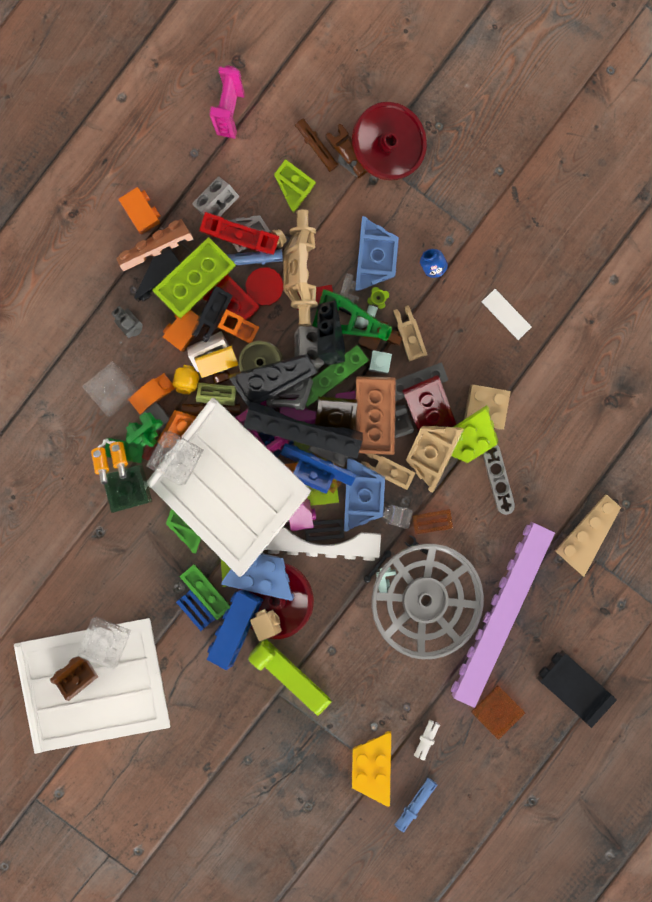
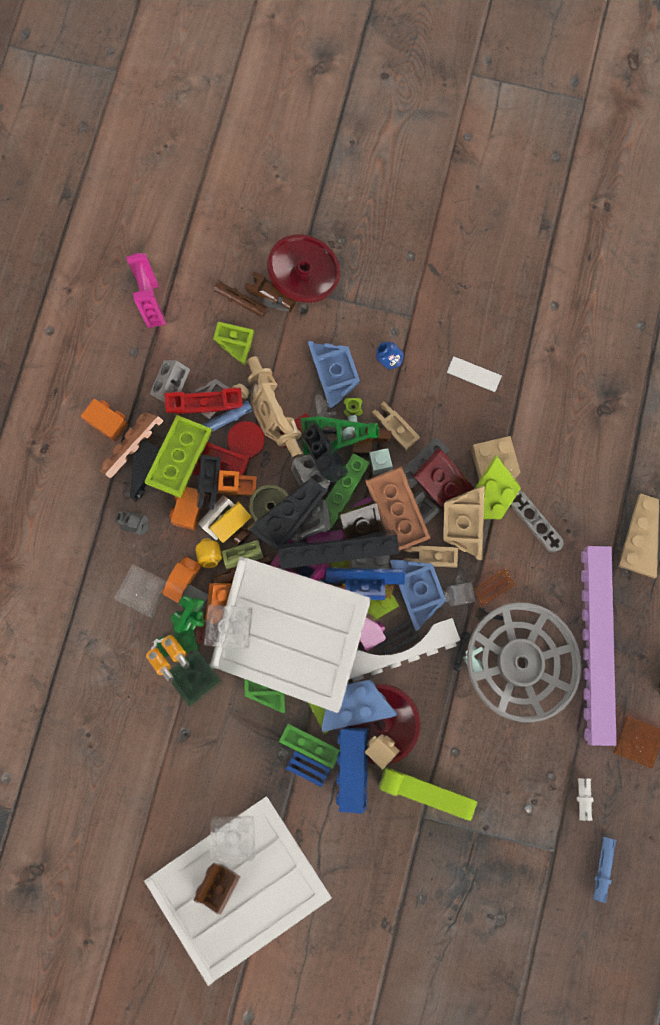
camera: 20 degrees left, 10 degrees down
(373, 768) = (546, 851): yellow wing -> none

